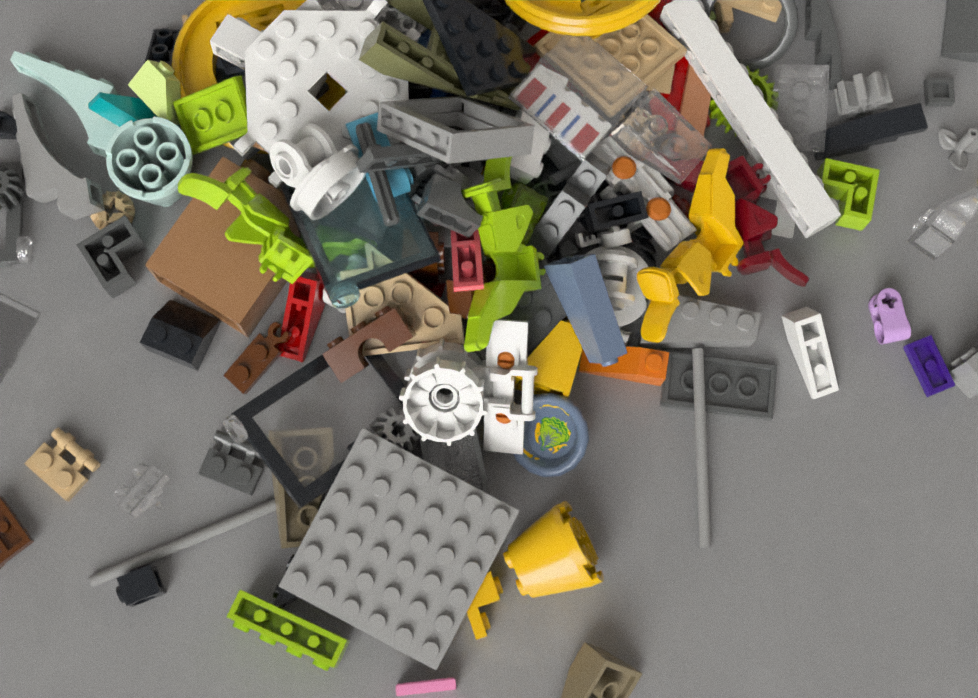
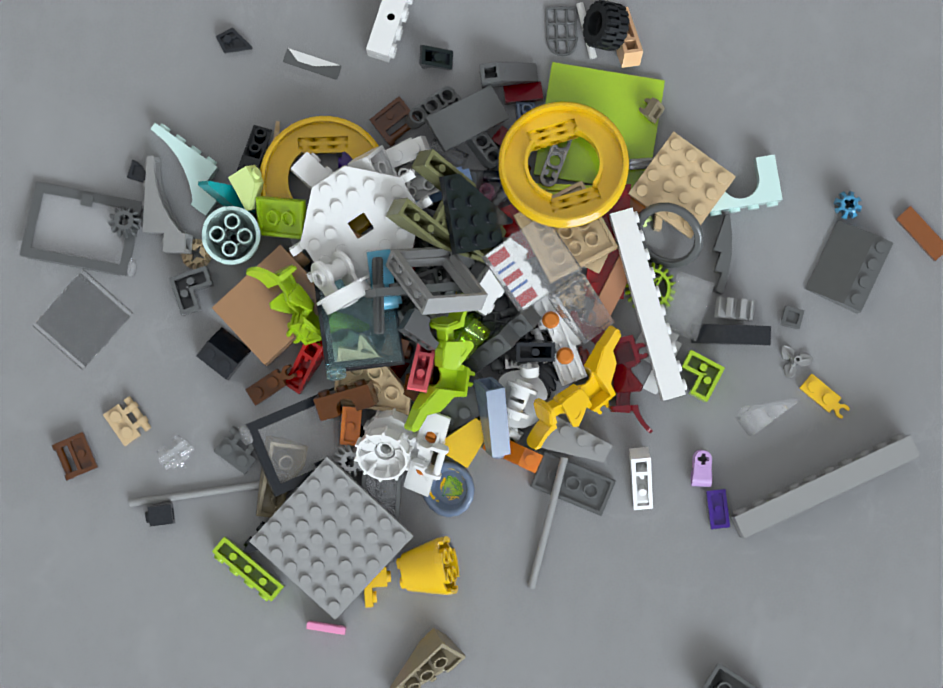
camera: 15 degrees right, 10 degrees up
(385, 380) = (350, 425): none -> orange plate

